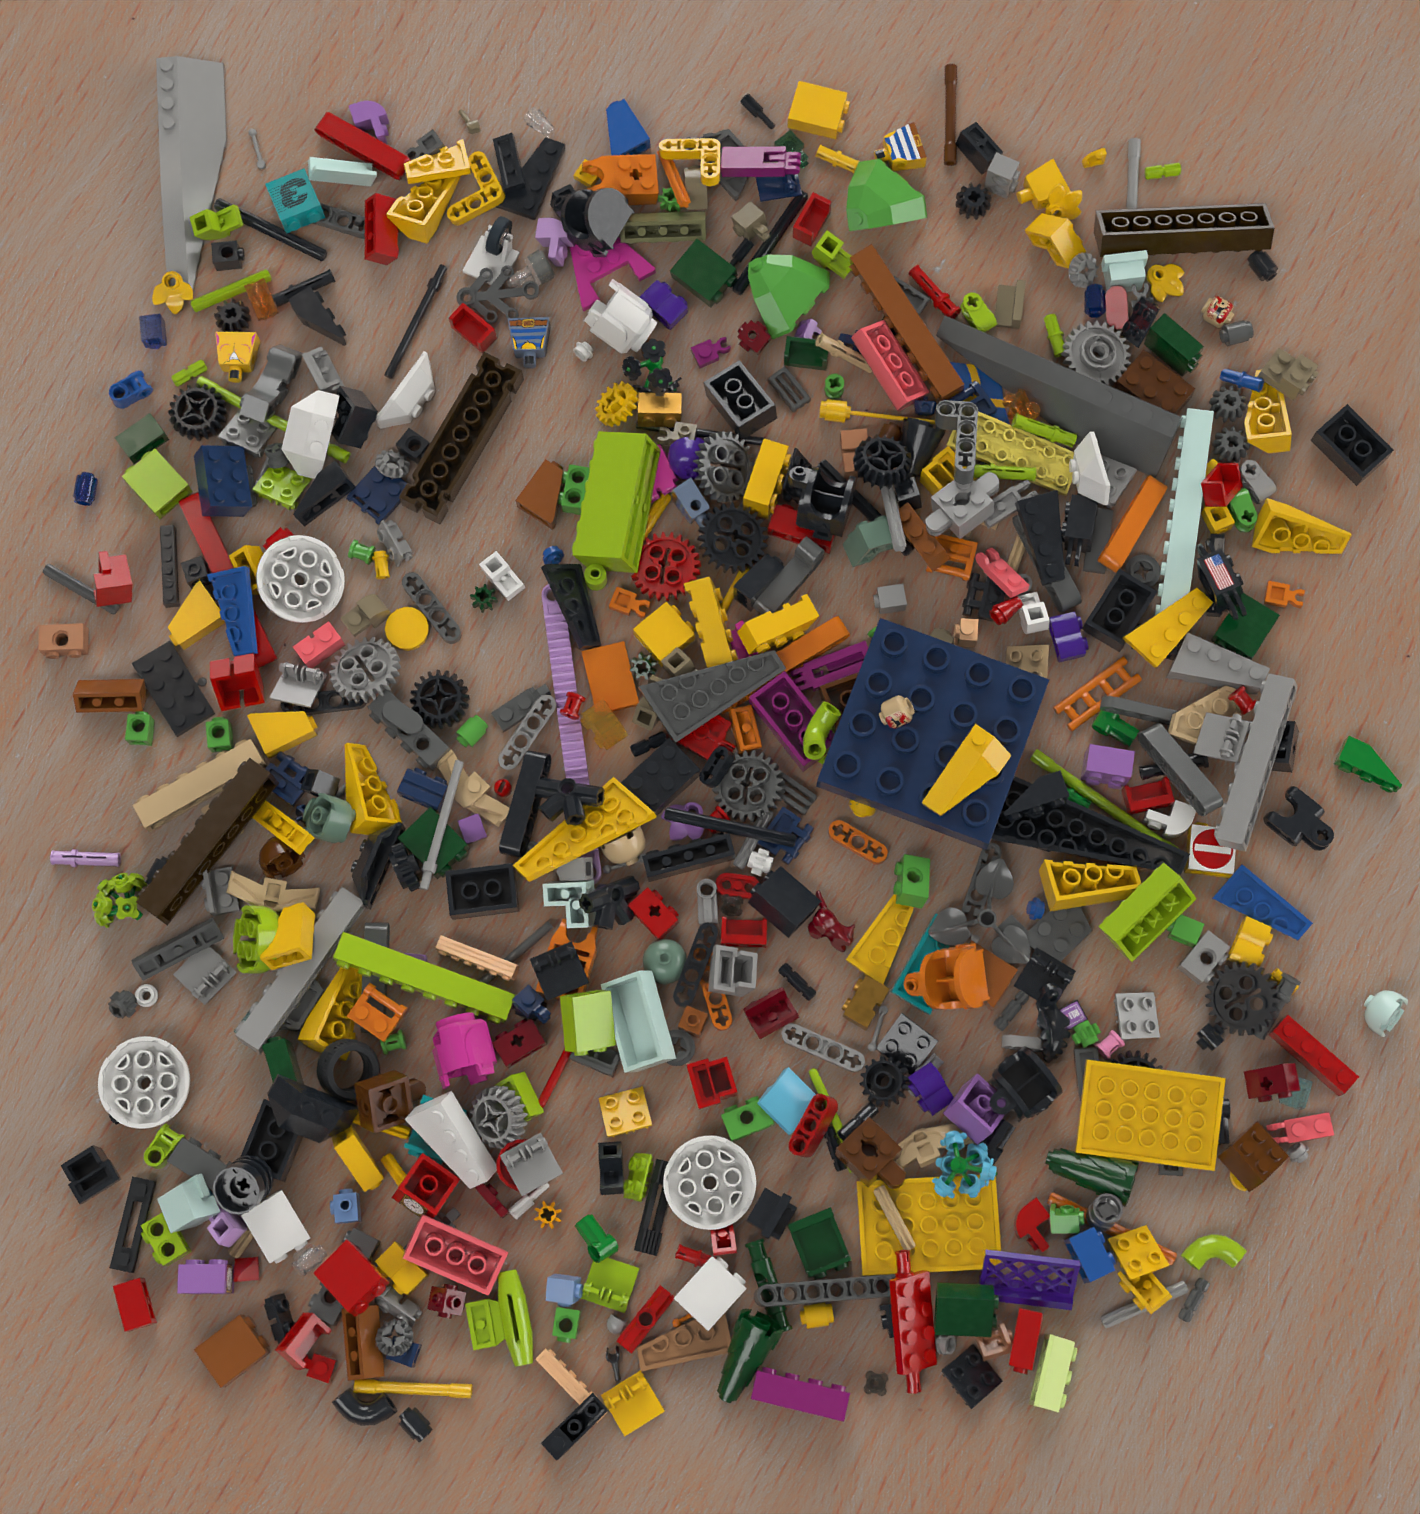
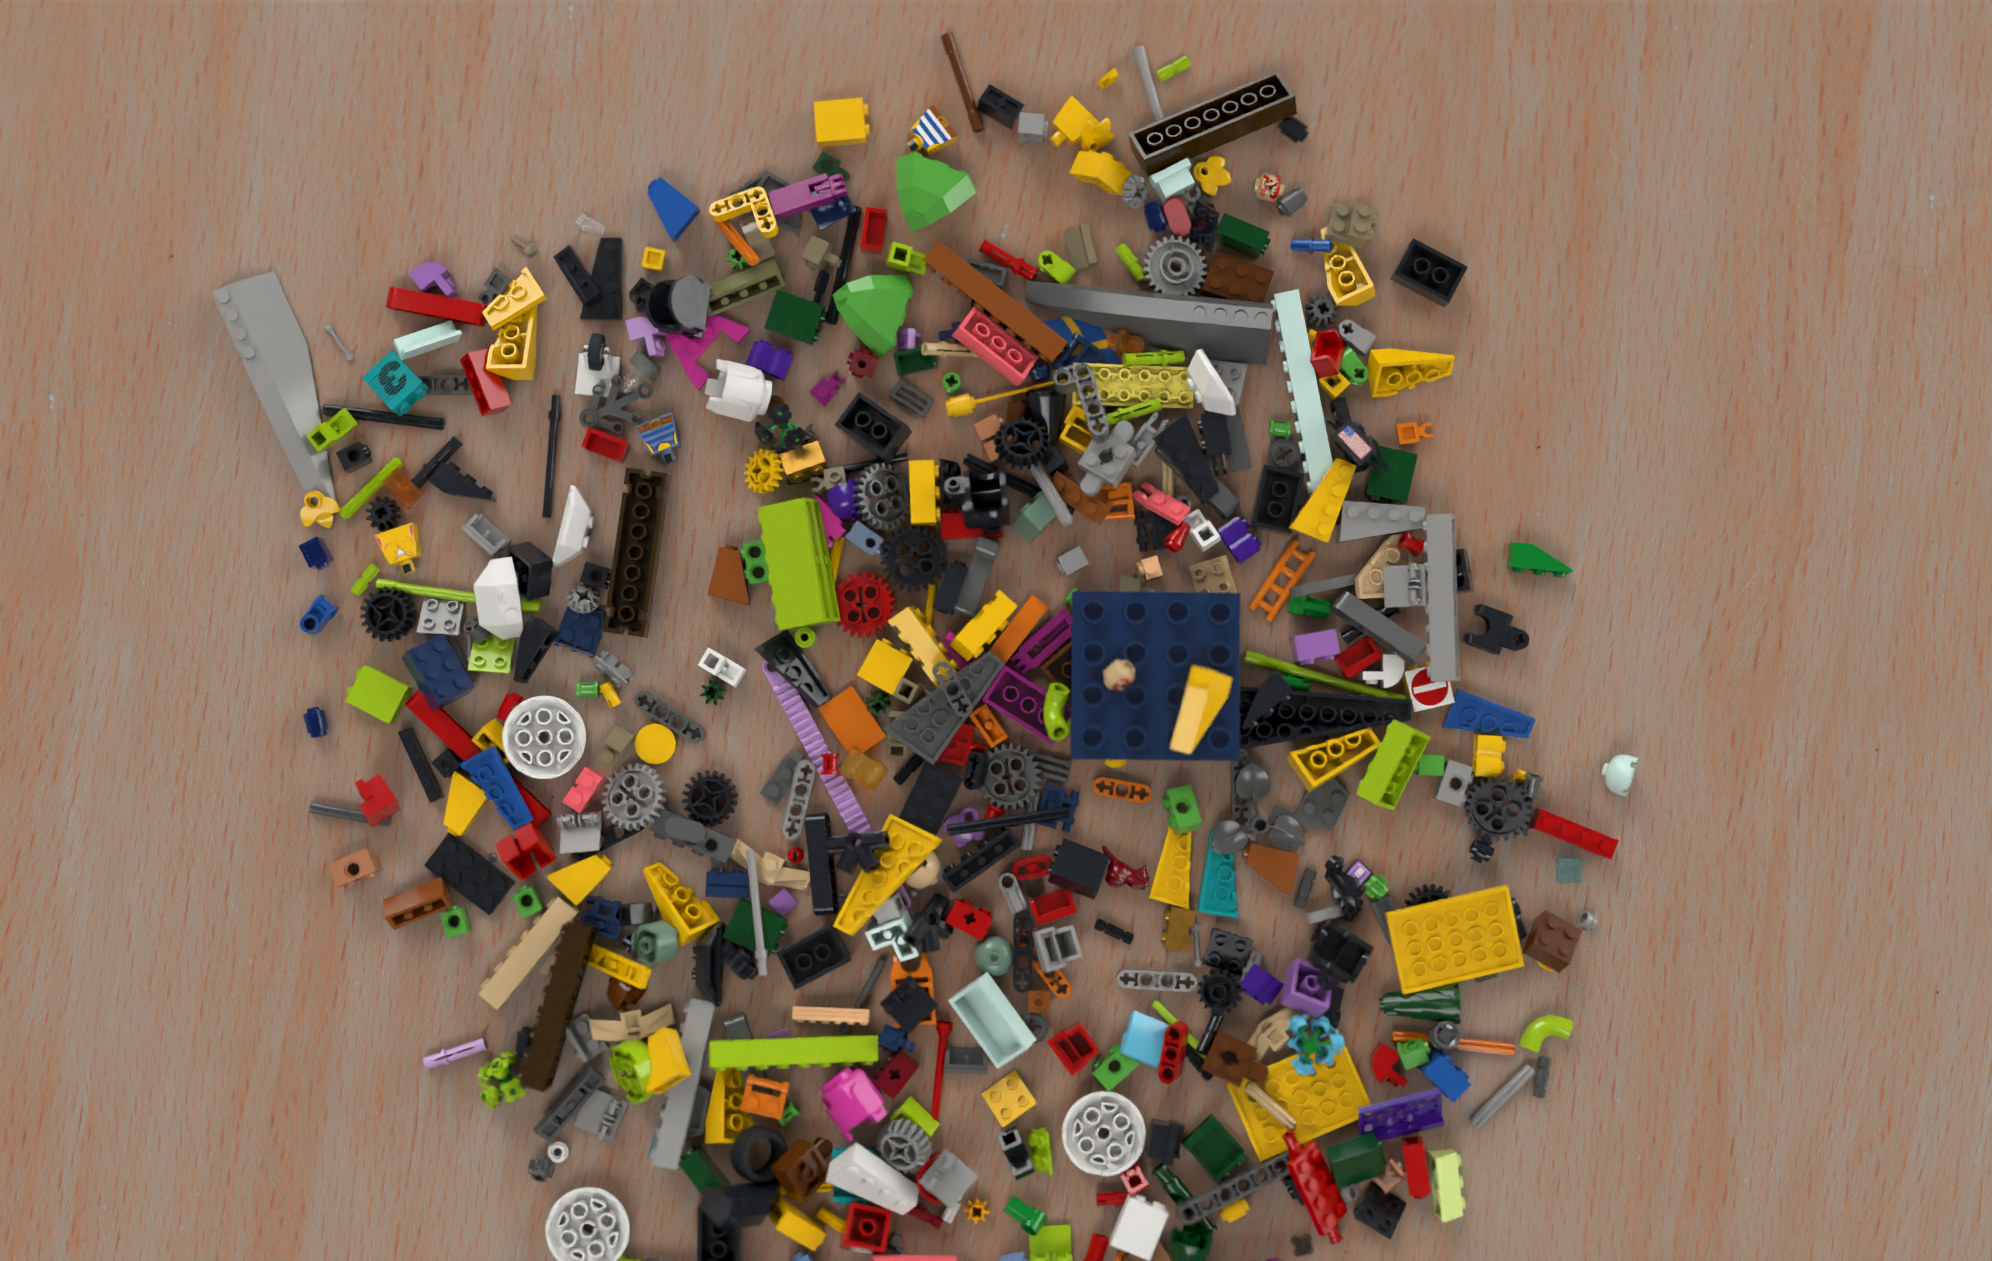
camera: 25 degrees left, 10 degrees up
(141, 438) = (347, 657): dark green panel -> none
(271, 386) = (445, 565): dark grey brick -> none
(471, 731) = (749, 816): bright green brick -> none
(486, 190) = (567, 309): yellow beam -> none
(552, 555) = (759, 631): blue plate -> none
(583, 351) = (714, 430): white plate -> none
(587, 1021) = (949, 1038): lime brick -> none
(625, 602) = (839, 649): orange plate -> none
(630, 174) = (681, 255): orange brick -> none
(649, 1240) = (1068, 1199): black container -> none
(715, 656) = (954, 705): none -> dark grey beam
(756, 109) = (784, 141): black axle -> none
(760, 862) = (1044, 840): white gear -> none
(770, 1013) = (1101, 968): dark red bracket -> none
(837, 158) = (875, 163): yellow pin -> none
(951, 978) = (1246, 884): orange animal -> none
(976, 208) = (1004, 160): black gear -> none
(1035, 908) = (1295, 793): blue plate -> none
(1043, 970) = (1320, 846): black hinge -> none
(1109, 1045) = (1398, 888): bright pink bush -> none
(1132, 523) = (1260, 415): orange beam -> none
(1136, 1015) = (1413, 854): light grey hinge -> none
(1137, 1253) = (1483, 1057): yellow hinge -> none
(1147, 544) = (1279, 428): none -> bright green bush
(1148, 1291) = (1498, 1084): yellow bracket -> none
(1225, 410) = (1306, 280): dark grey gear -> none
(1282, 1076) = (1547, 871): dark red brick -> none
(1304, 1128) = (1584, 898): coral hinge -> none

